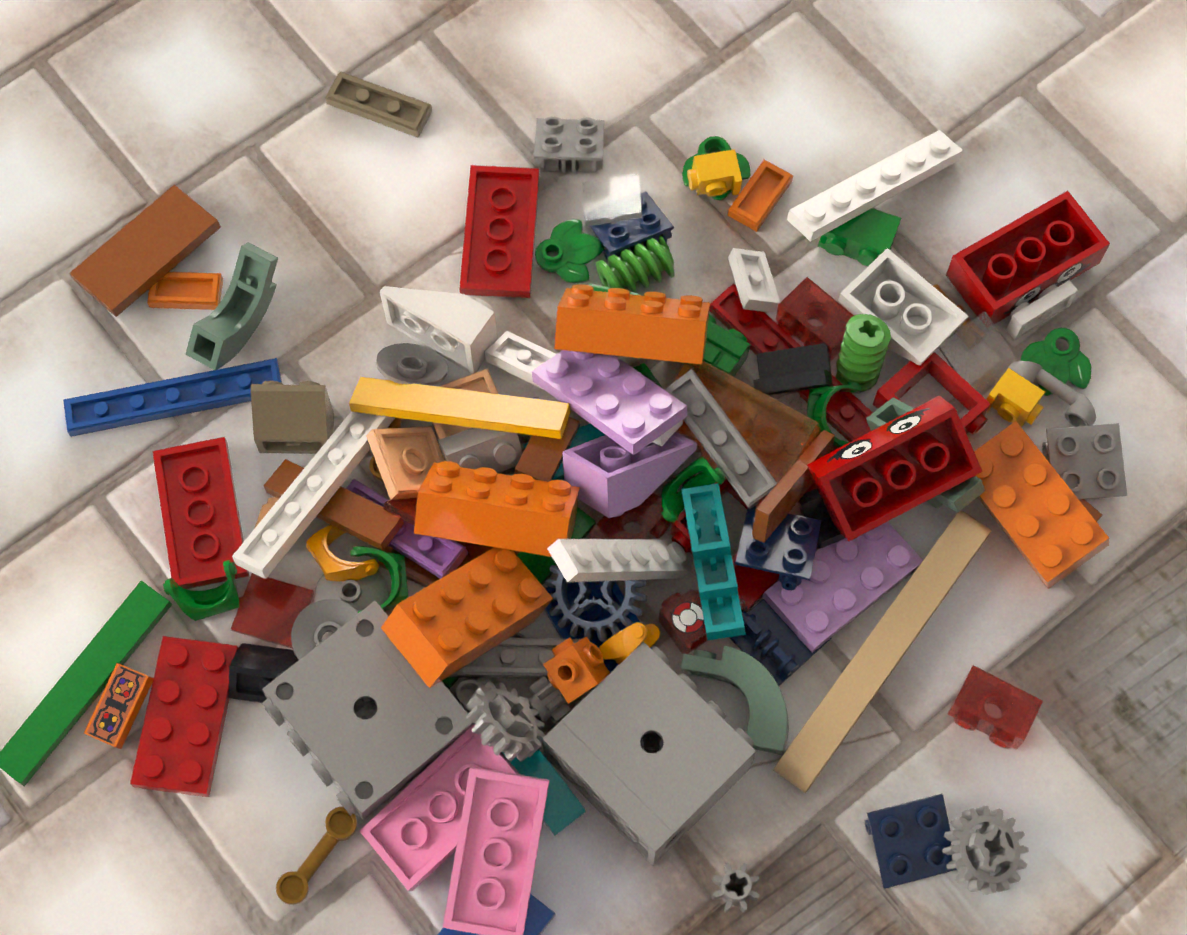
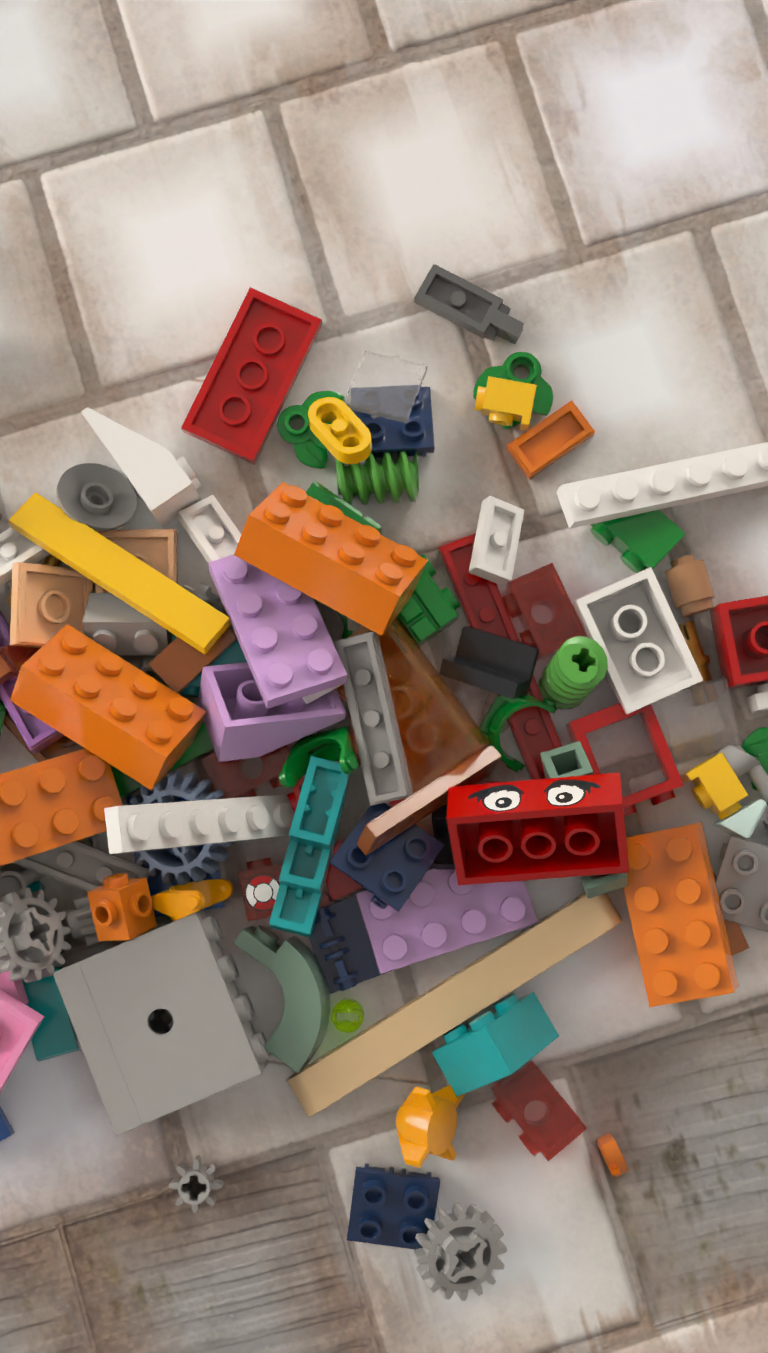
camera: 25 degrees right, 15 degrees up
(378, 104) = (184, 172): dark tan tile -> none
(569, 140) = (368, 298): light grey hinge -> none
(593, 238) = (346, 436): none -> yellow plate
(651, 120) = (467, 306): none -> dark grey hinge
(802, 706) = (347, 1006): none -> clear neon green hinge
(908, 753) = (427, 1124): none -> light orange piece
(923, 257) = (690, 586): none -> medium nougat brick
(936, 662) = (494, 1043): none -> teal brick
(1049, 417) = (744, 820): none -> light aqua slope
(1074, 723) = (612, 1155): none -> orange tile

